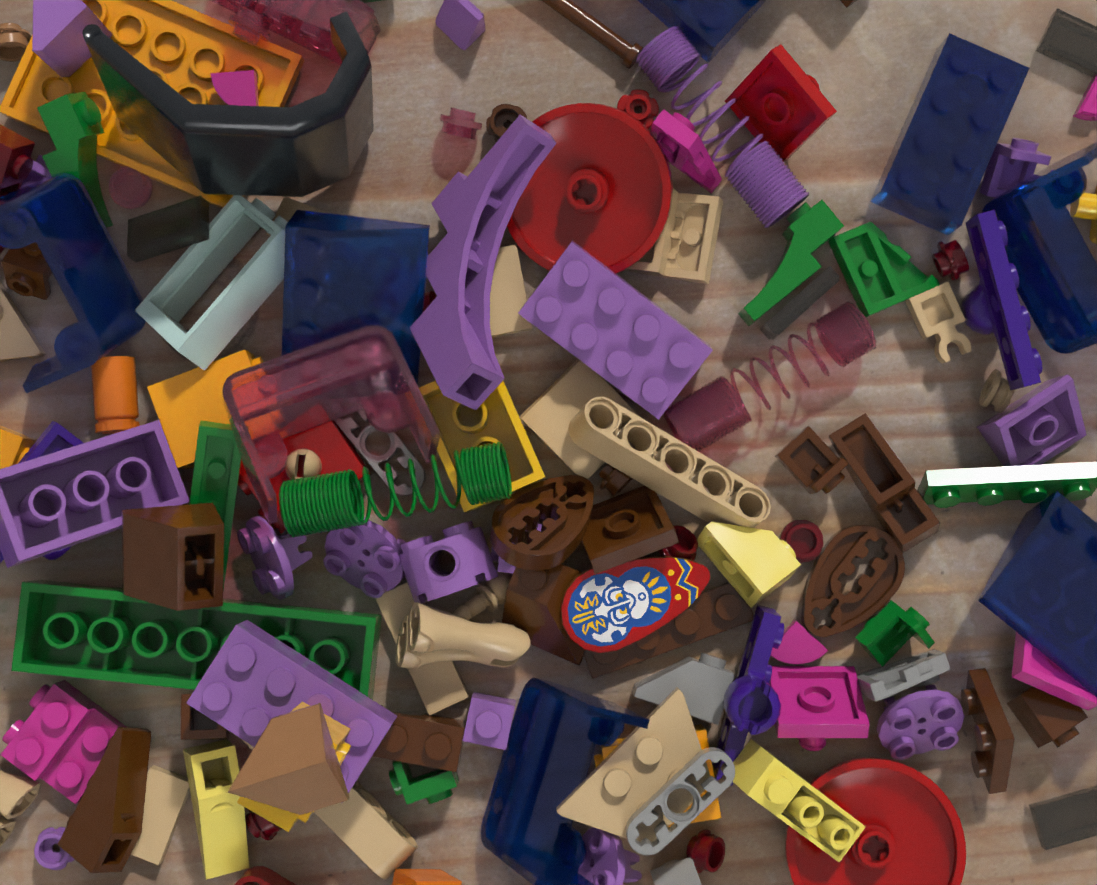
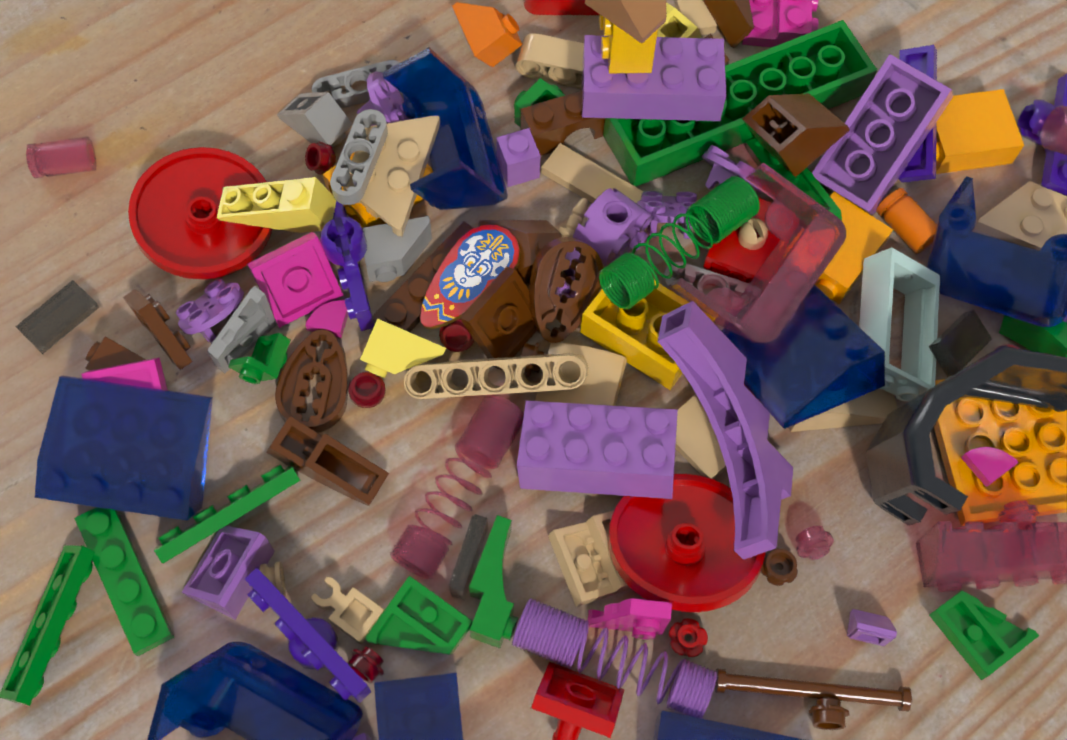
camera: 145 degrees right, 20 degrees down
(439, 636) = (584, 183): tan piece -> none
(812, 462) = (390, 445): reddish brown bracket -> none

